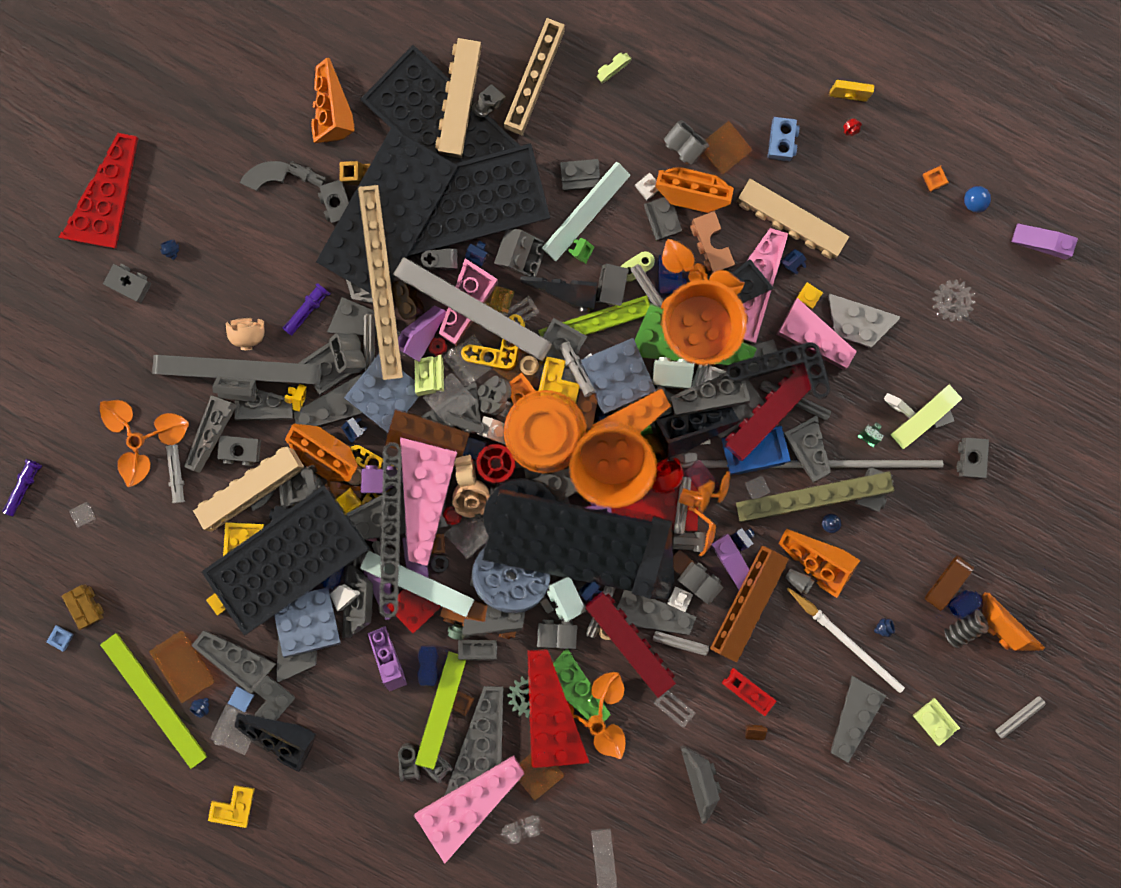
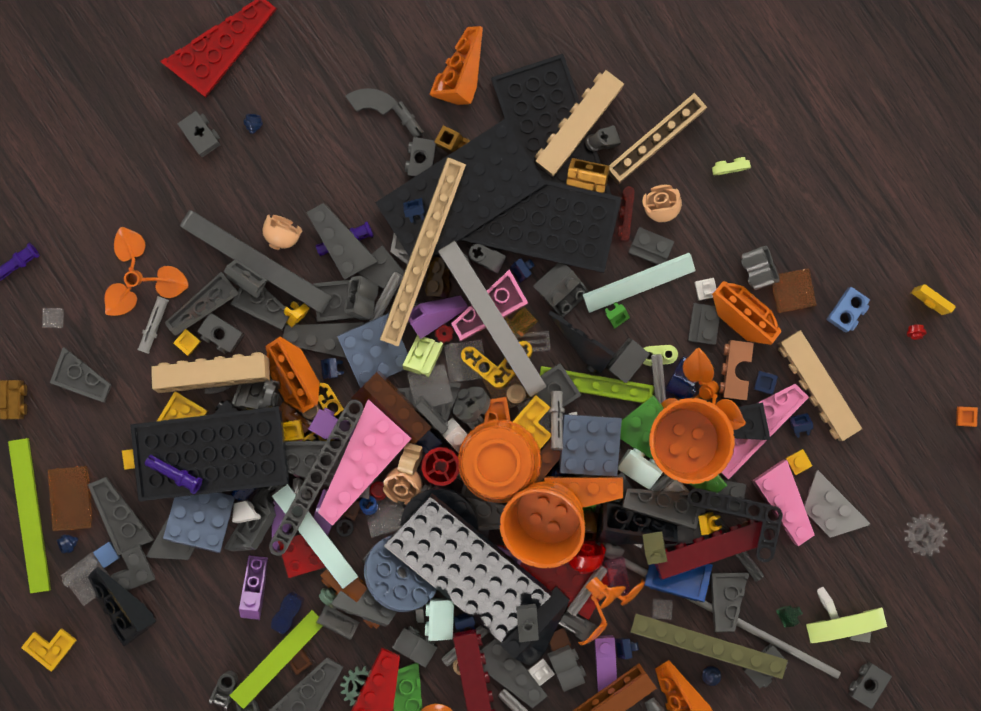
camera: 30 degrees right, 0 degrees up
(134, 555) = (78, 377): none -> dark grey wing
(213, 473) = (187, 342): none -> yellow plate
(270, 593) = (181, 477): none -> dark purple pin
(305, 314) = (340, 242): none -> dark grey wing
(352, 247) = (413, 208): none -> dark blue tile
(455, 533) = (372, 509): none -> blue bush
(491, 139) = (588, 175): none -> pearl gold brick
(542, 156) = (626, 214): none -> clear red plate
(570, 130) = (662, 203): none -> light nougat cylinder
(644, 560) = (527, 622): none -> dark grey plate
(722, 435) = (654, 548): none -> olive brick
(743, 241) = (765, 382): none -> dark blue tile
(757, 391) = (707, 523): none -> yellow tile

